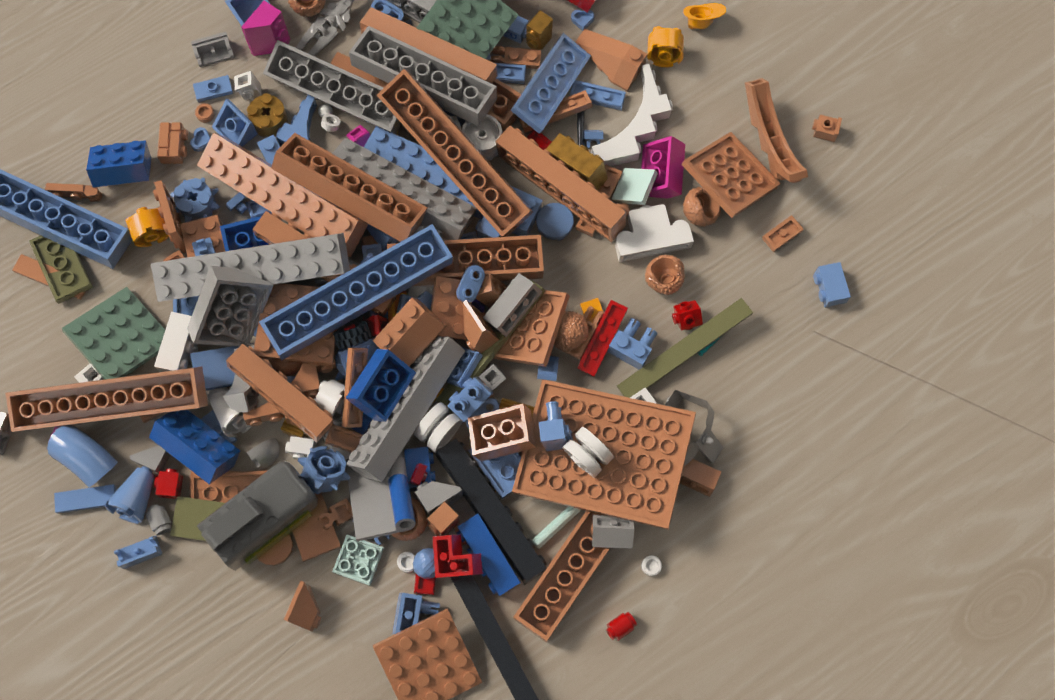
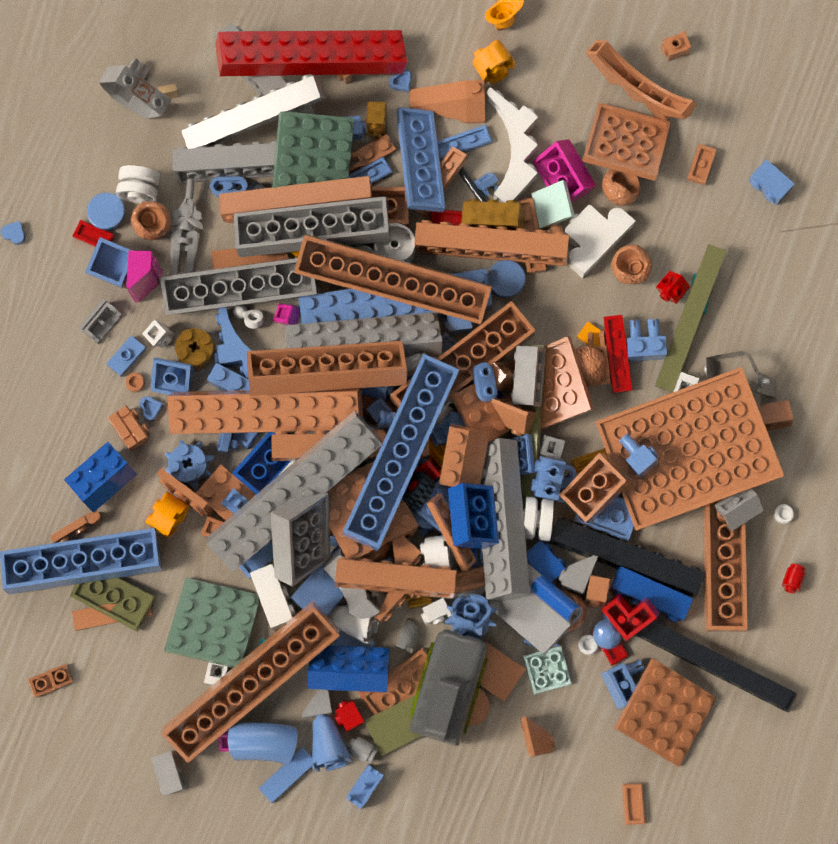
camera: 30 degrees left, 5 degrees up
(339, 513) = (506, 643): nougat plate -> none
(419, 475) = (552, 568): dark red plate -> none
(550, 371) = (596, 414): medium blue tile -> none
(556, 525) = (685, 535): light aqua axle -> none
(590, 450) = (680, 456): white wheel -> none

